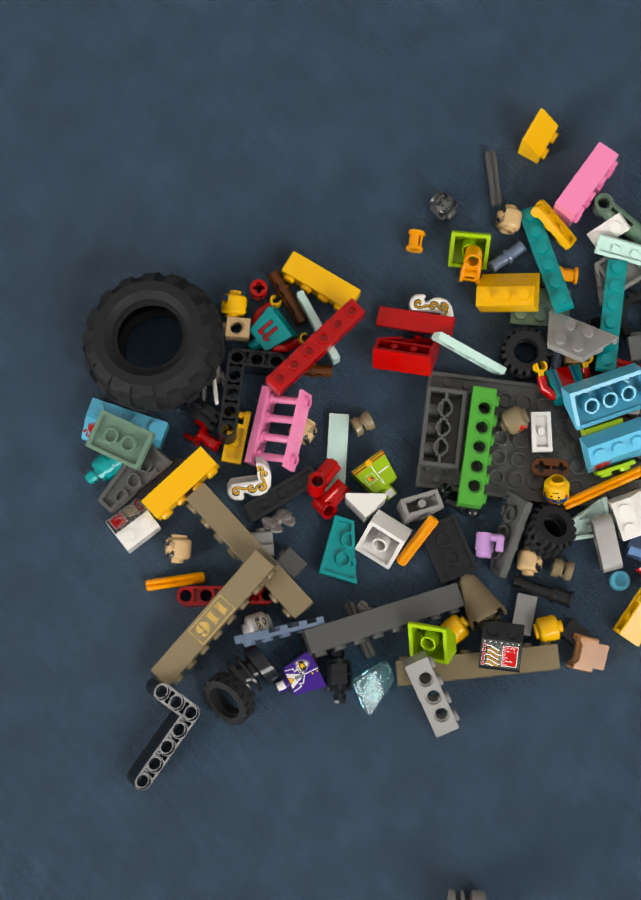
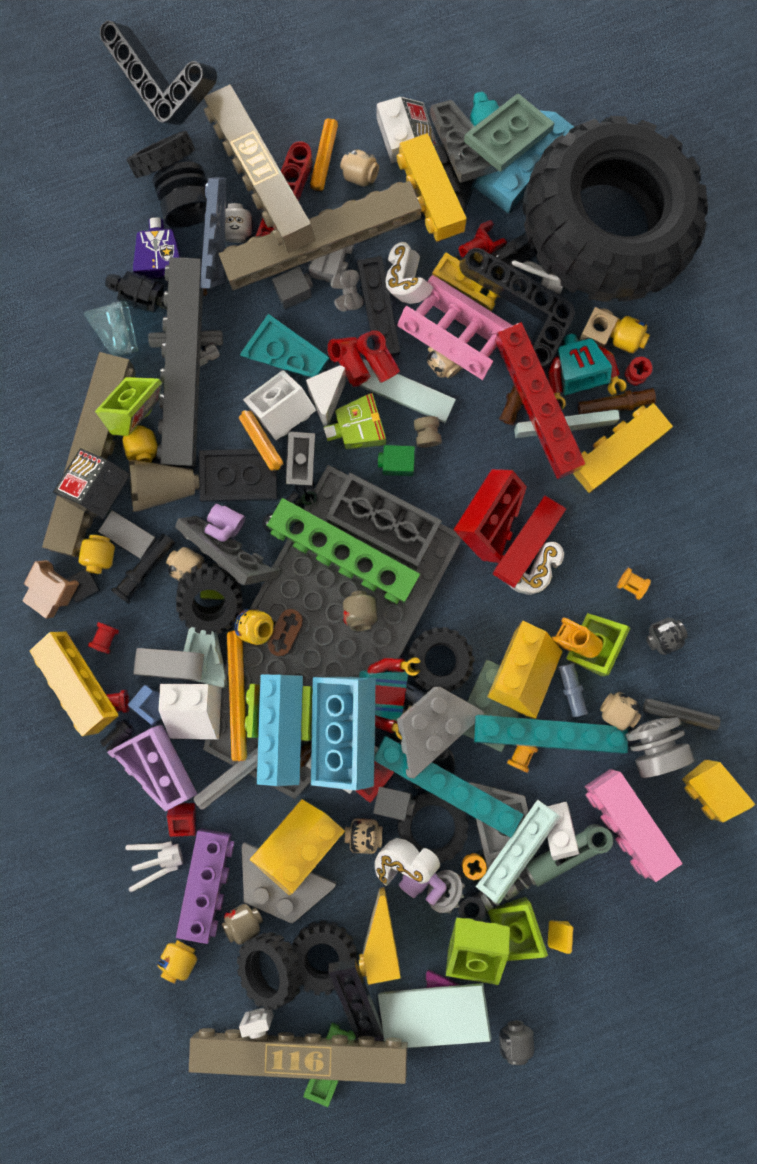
camera: 115 degrees right, 5 degrees up
(392, 437) = (397, 460): none -> green brick
(440, 723) = (72, 382): light grey brick -> none
(468, 353) = (464, 587): light aqua tile -> none
(525, 183) = (660, 749): none -> light grey wheel
(541, 432) = (333, 638): white plate -> none
(554, 224) = (594, 764): yellow plate -> none
(558, 566) = (164, 596): dark tan wheel -> none
(605, 600) = (103, 638): none -> red bush
(619, 580) = (121, 665): medium azure tile -> none

